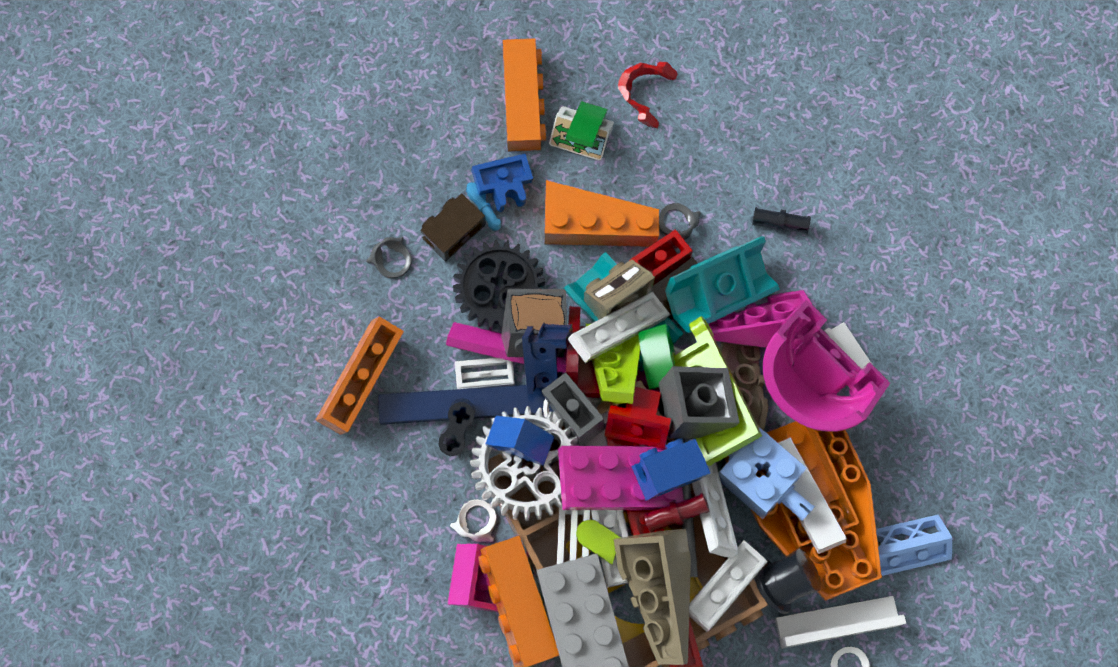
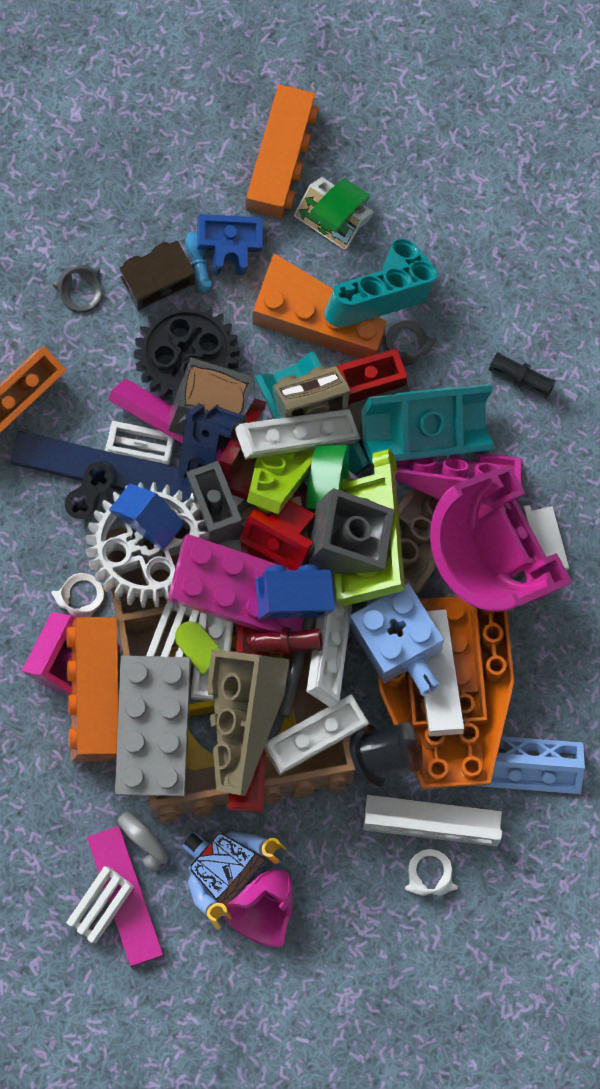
camera: 15 degrees right, 0 degrees up
(625, 85) = (401, 172): red helmet -> none
(659, 174) = (402, 284): none -> teal beam

